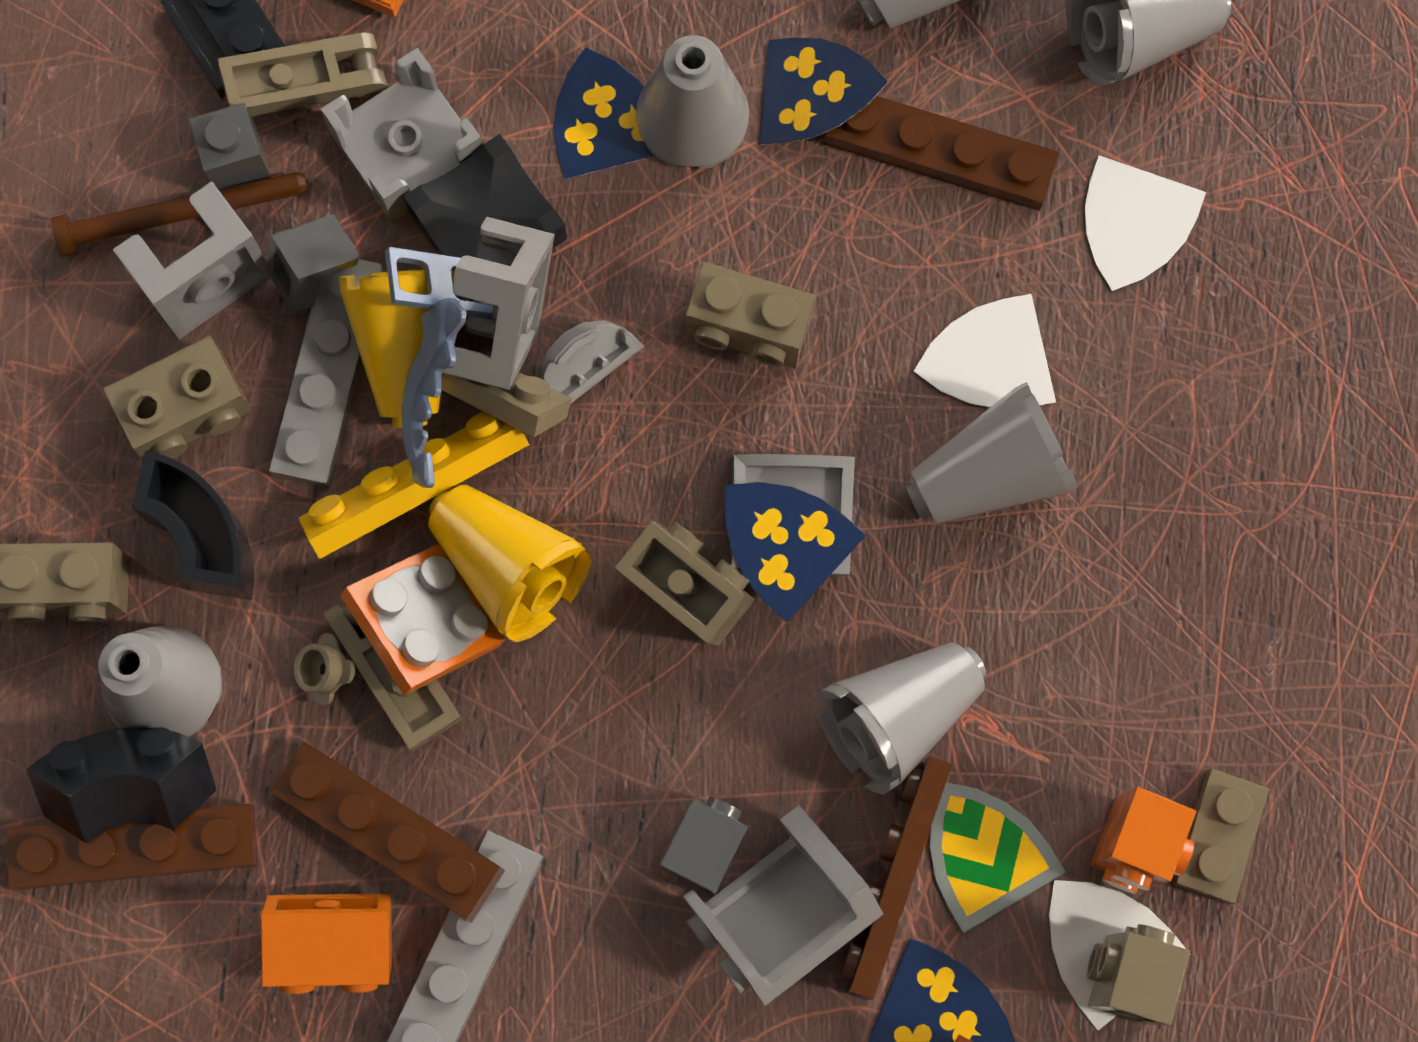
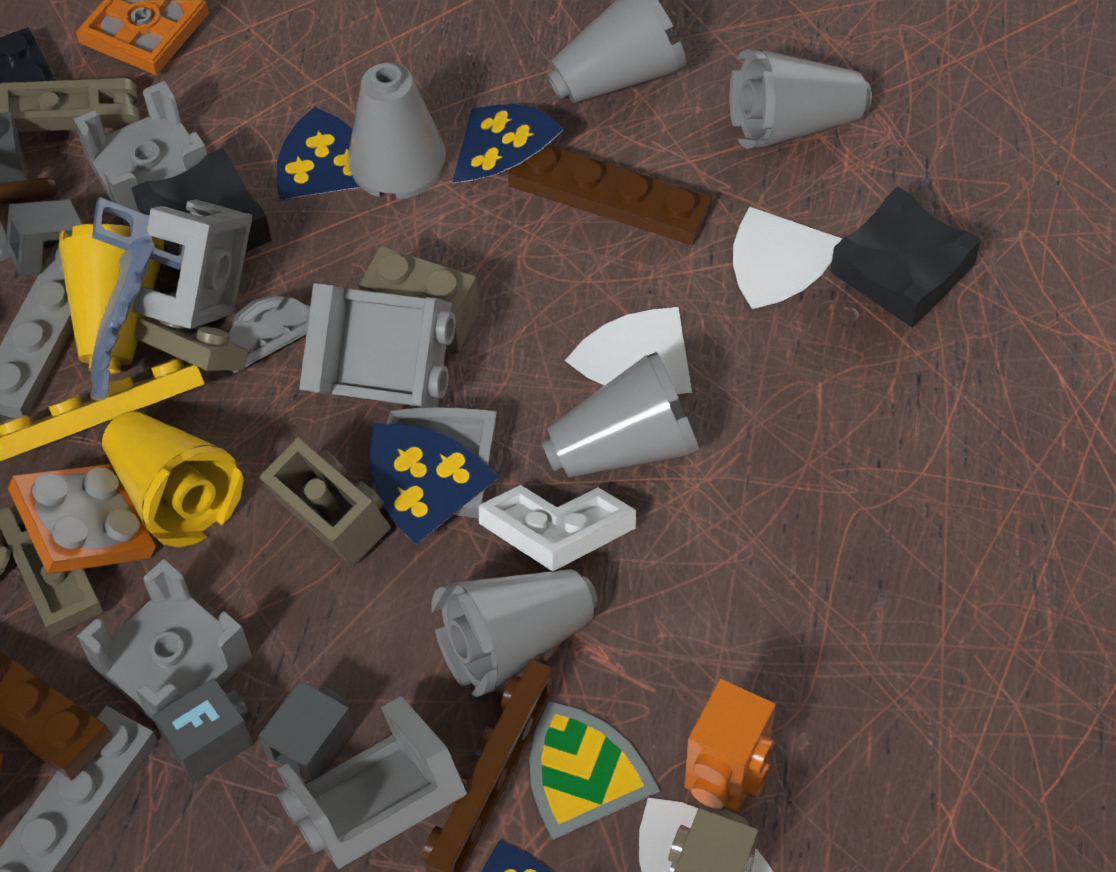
camera: 10 degrees right, 20 degrees down
(541, 763) = (166, 645): none -> light grey panel
(598, 849) = (205, 728): none -> dark grey brick
(718, 387) = (377, 346): none -> light grey panel
(937, 599) = (554, 533): none -> white plate
(1222, 835) = (814, 767): dark tan plate -> none
(1280, 223) = (904, 257): none -> black brick

